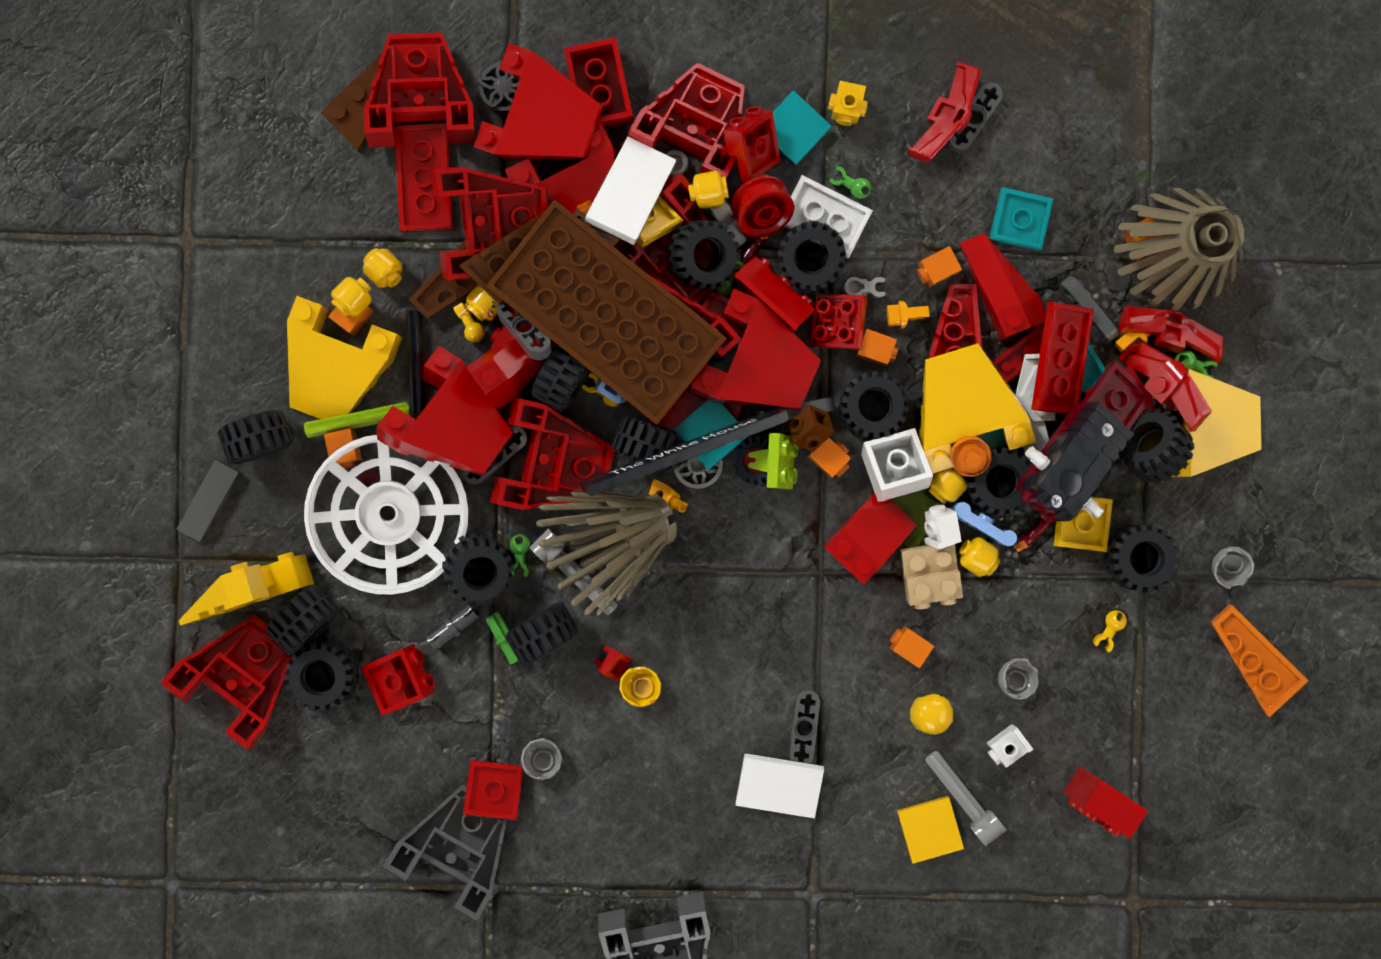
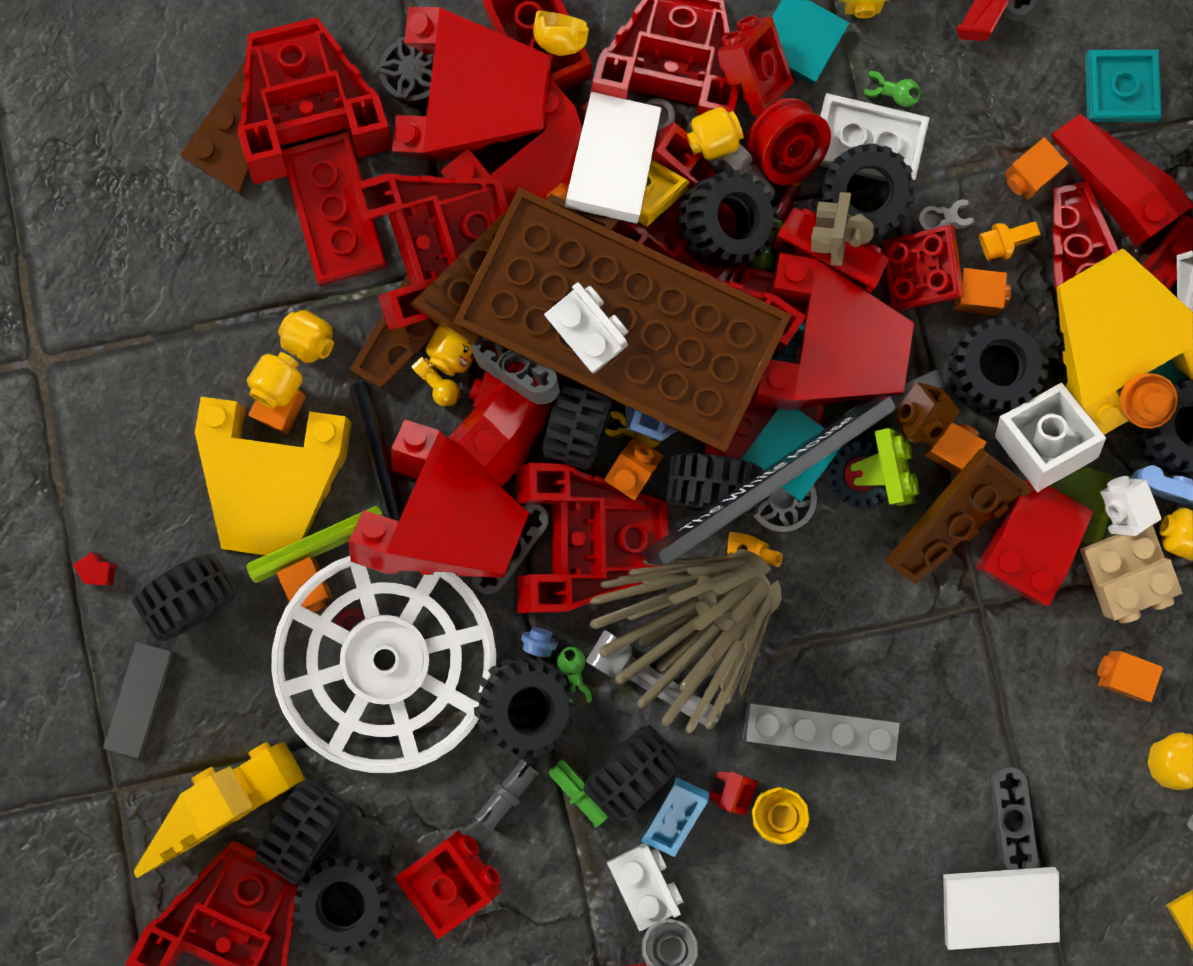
camera: 10 degrees left, 5 degrees down
(195, 402) = (95, 571): none -> red piece
(499, 526) = (539, 642): none -> medium blue plate
(535, 713) = (644, 886): none -> white bracket
(565, 670) = (675, 816): none -> dark azure tile
(579, 314) = (587, 327): none -> white bracket
(595, 418) = (634, 468): none -> orange brick
(613, 89) = (559, 33): none -> yellow hair
(683, 634) = (821, 731): none -> light grey brick
(782, 281) = (839, 229): none -> dark tan hips
(828, 497) = (968, 502): none -> reddish brown wing
(948, 485) = (1123, 448): yellow head -> none

